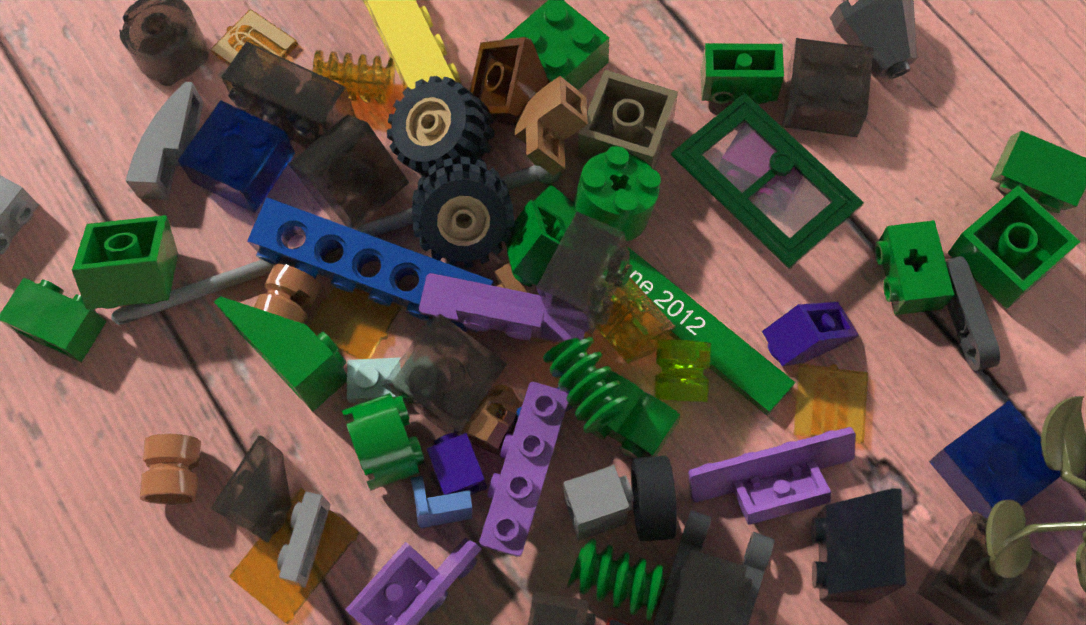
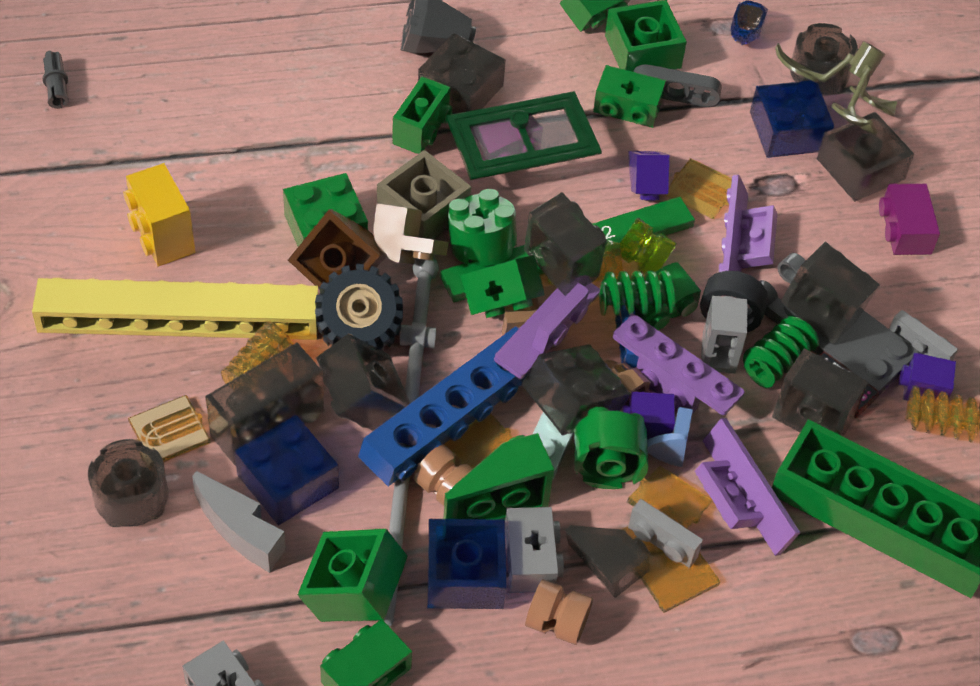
camera: 75 degrees left, 15 degrees down
(186, 358) = (466, 564): none -> clear blue brick
(217, 418) = (526, 531): none -> light grey brick
(363, 530) = (671, 497): none -> clear yellow piece
(462, 212) = (447, 320): black wheel -> none
(860, 548) = (824, 197): black slope -> none

